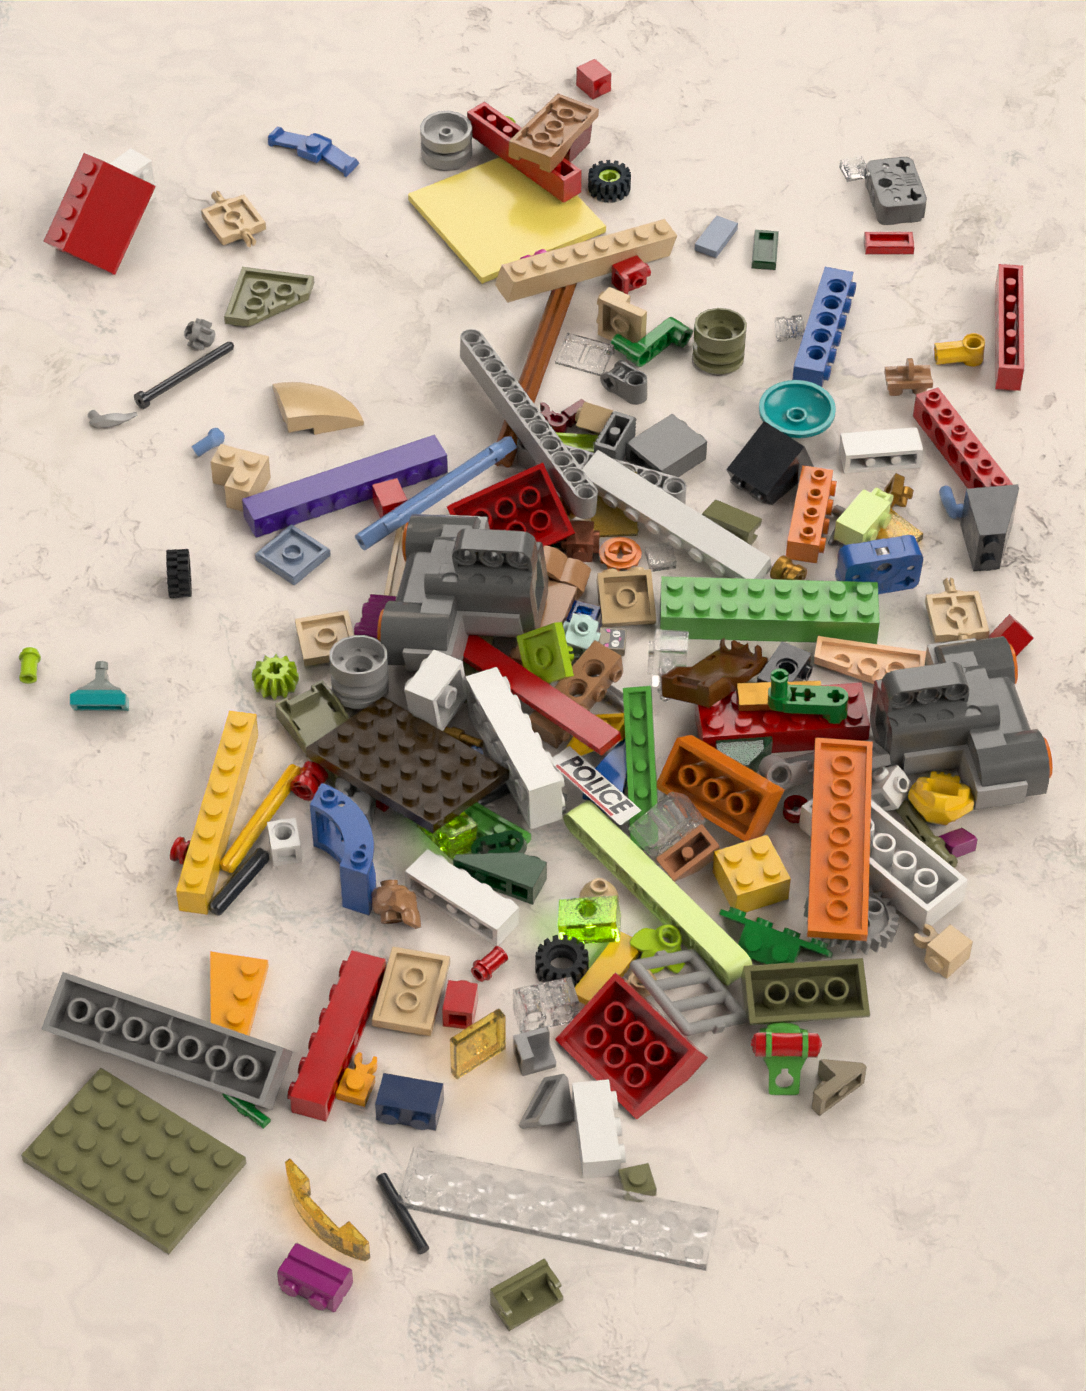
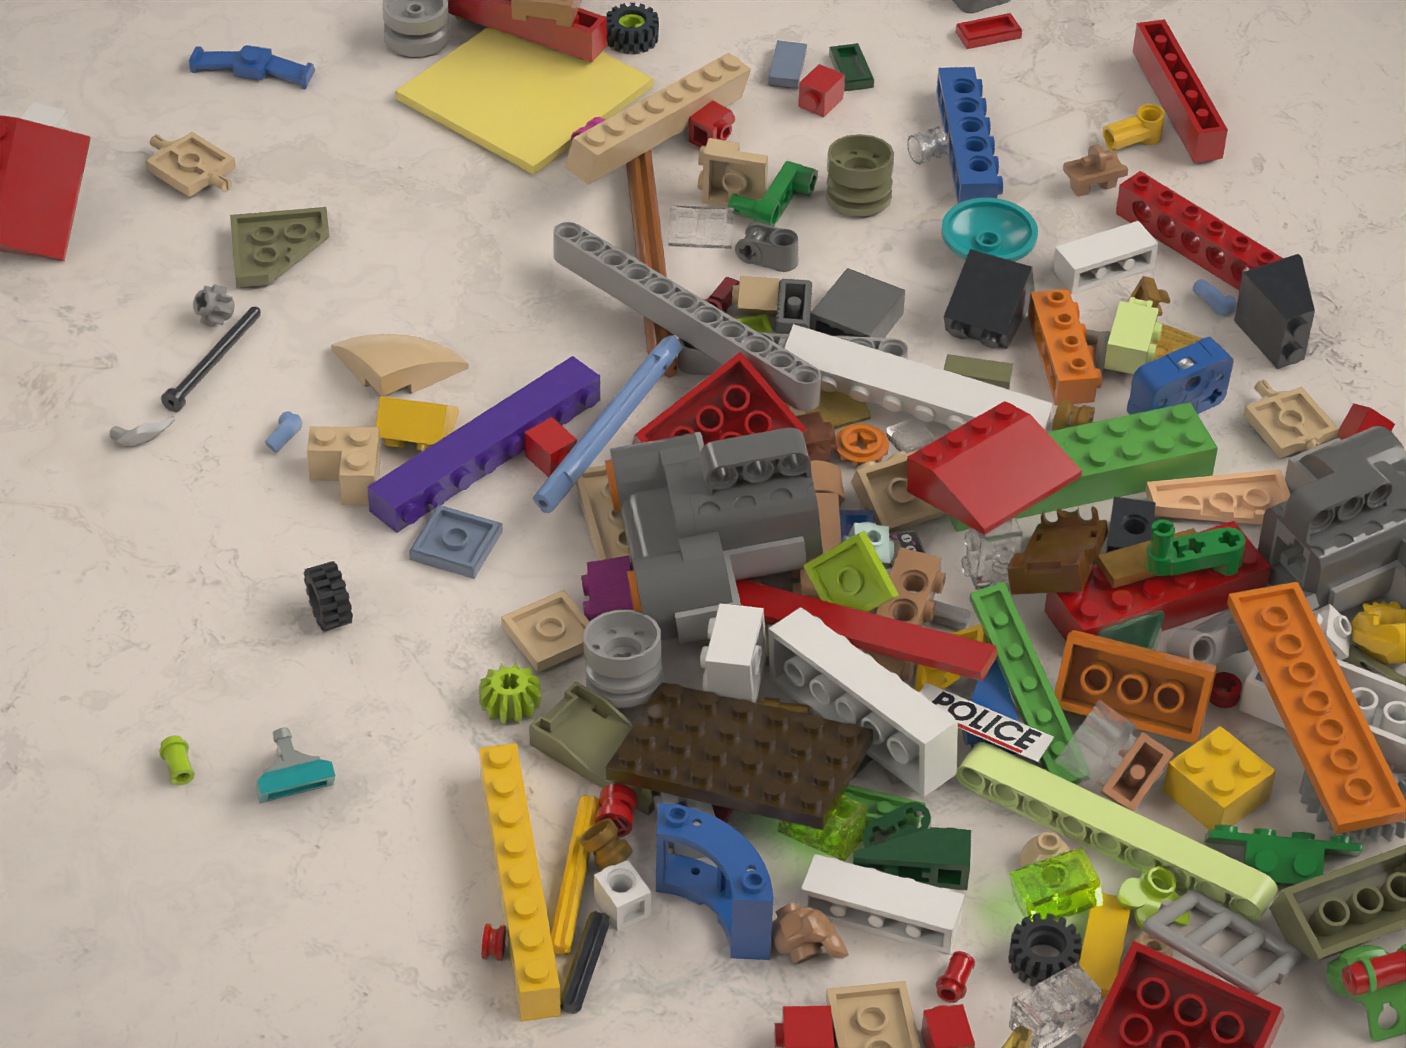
camera: 20 degrees left, 5 degrees down
(287, 803) = (605, 844): none -> pearl gold wheel
(301, 456) = (414, 422): none -> yellow slope
(687, 597) = (990, 468): none -> slope
(728, 264) = (821, 90): none -> red brick

